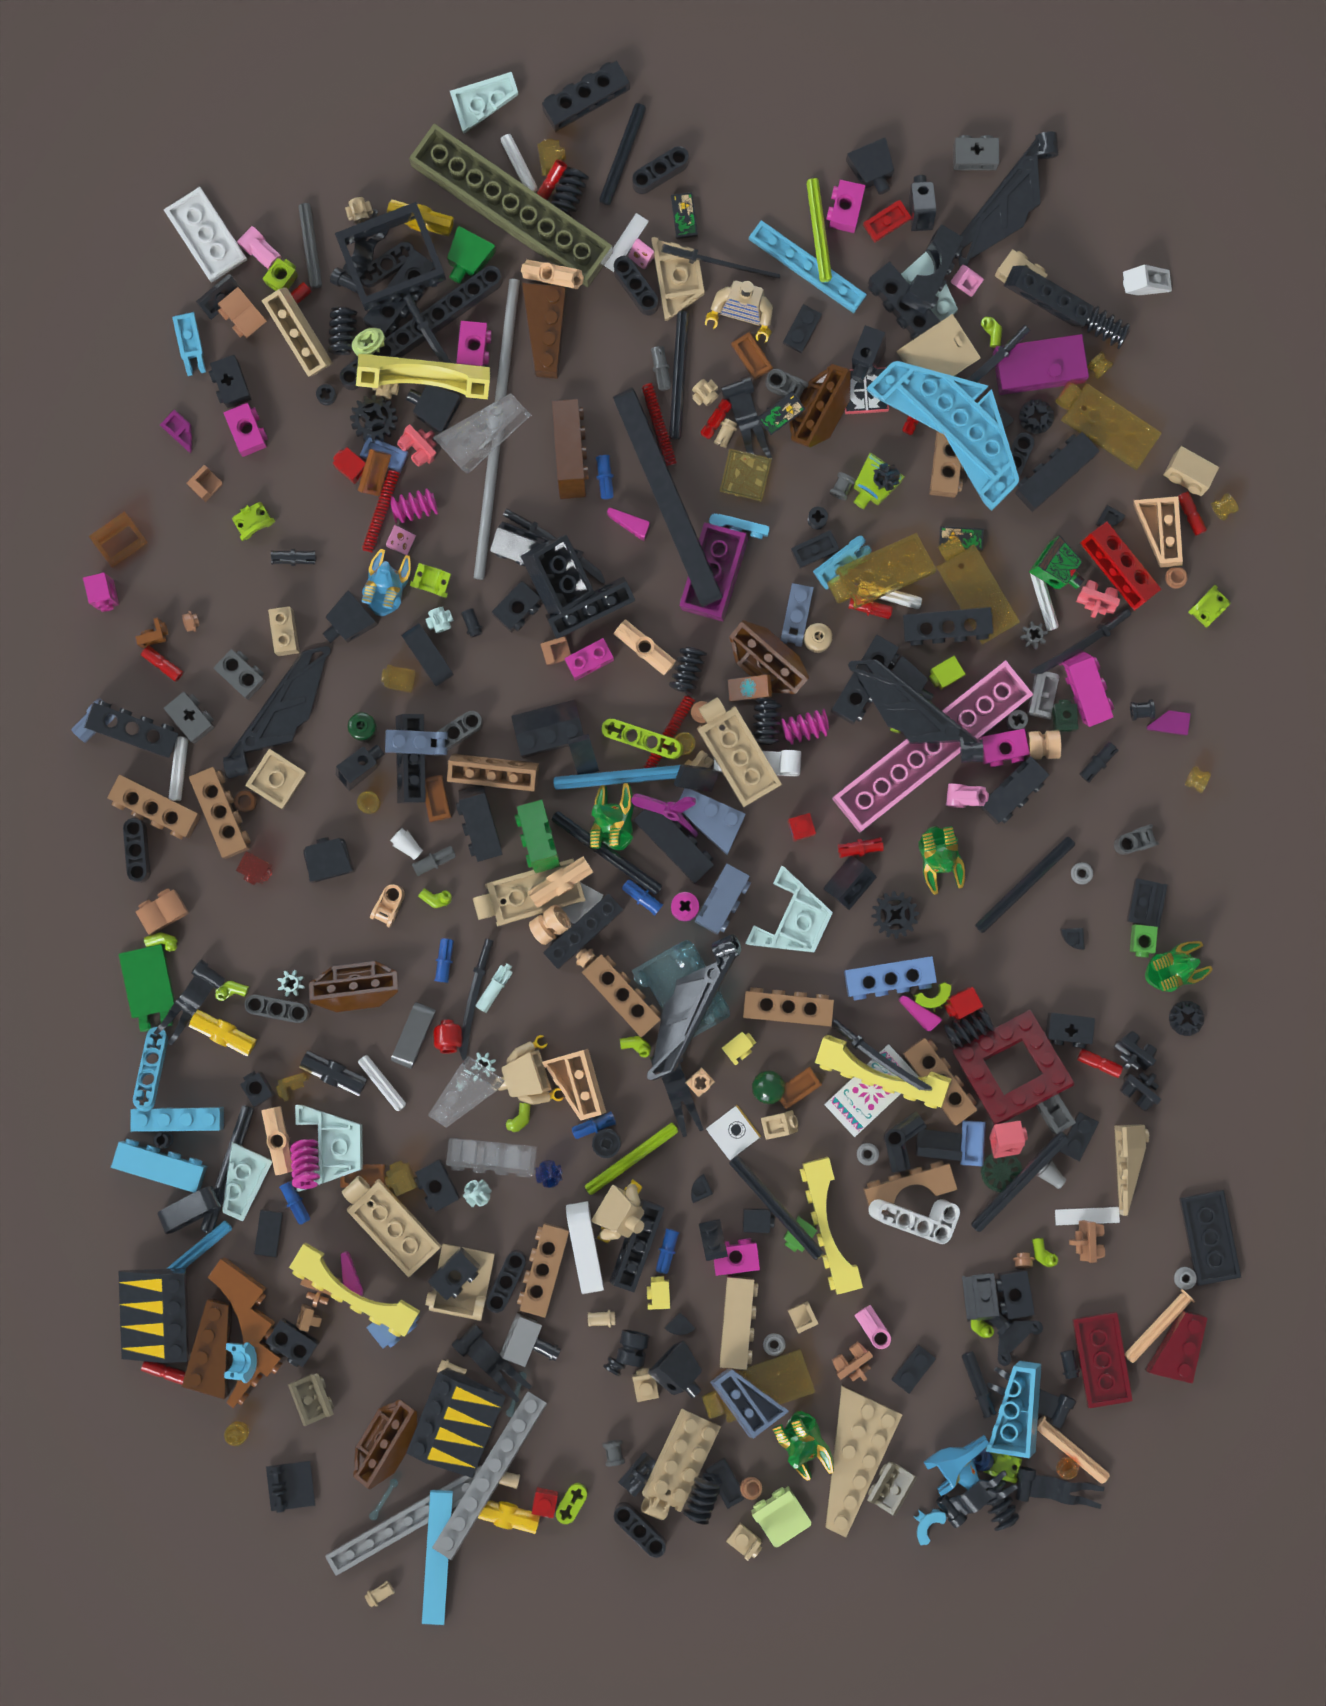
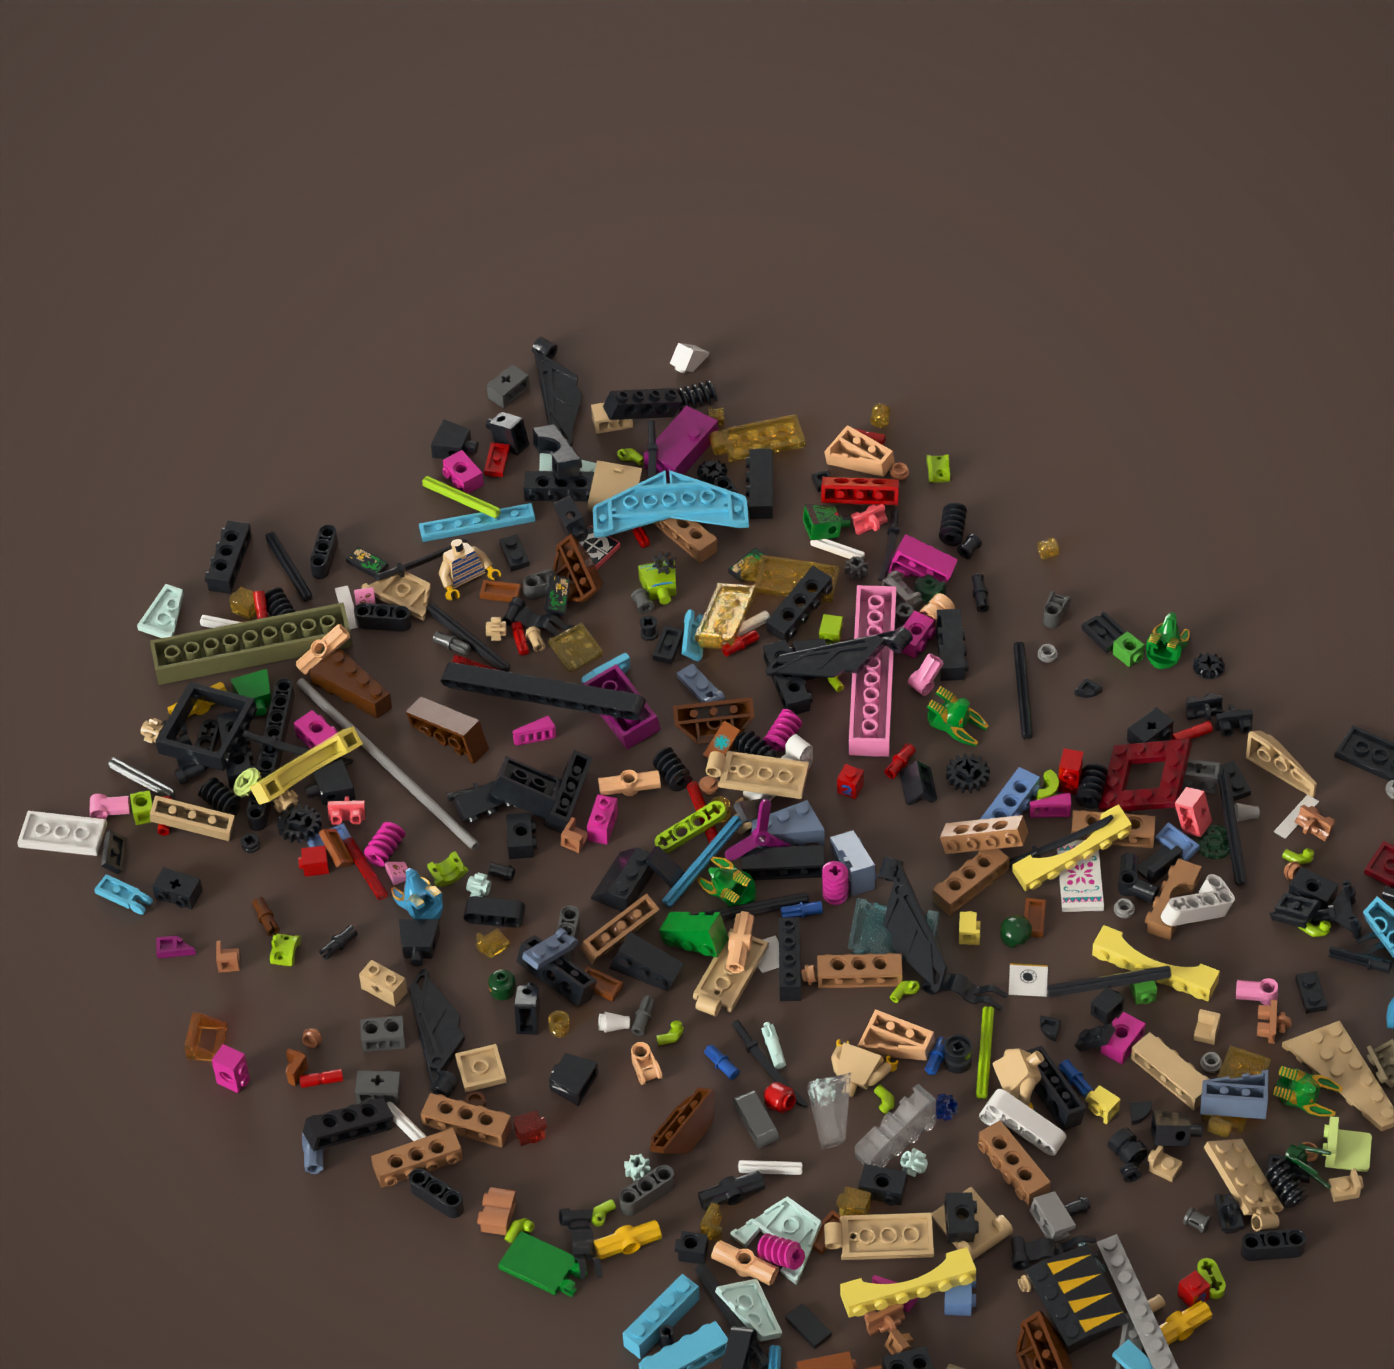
camera: 45 degrees left, 35 degrees down
(147, 1069) = (608, 1299): medium azure beam -> none
(237, 419) = (219, 904): dark pink brick -> none
(241, 313) = (140, 845): nougat brick -> none
(268, 476) = (265, 916): none -> reddish brown pin
(295, 1202) = (801, 1289): blue axle -> none
(482, 432) = (380, 766): clear wedge -> none
(506, 1292) = (997, 1184): black beam -> none
(550, 924) = (763, 972): light nougat wheel -> none
(601, 1319) = (1084, 1158): tan pin -> none
(605, 476) = (489, 725): blue axle -> none
(700, 1082) = (970, 955): light nougat piece -> none
(732, 1491) = (1298, 1158): none -> dark green plant
(779, 1124) = (1049, 943): tan bracket -> none
(802, 922) = (915, 826): light aqua wing -> none
(812, 643) = (730, 681): tan head -> none
(833, 978) = (984, 834): none -> medium nougat brick
(967, 280) = (583, 446): bright pink slope -> none
(1152, 675) = (953, 524): none -> black piece
(1171, 722) = (995, 538): magenta tile -> none
(1191, 471) = (837, 415): tan brick -> none

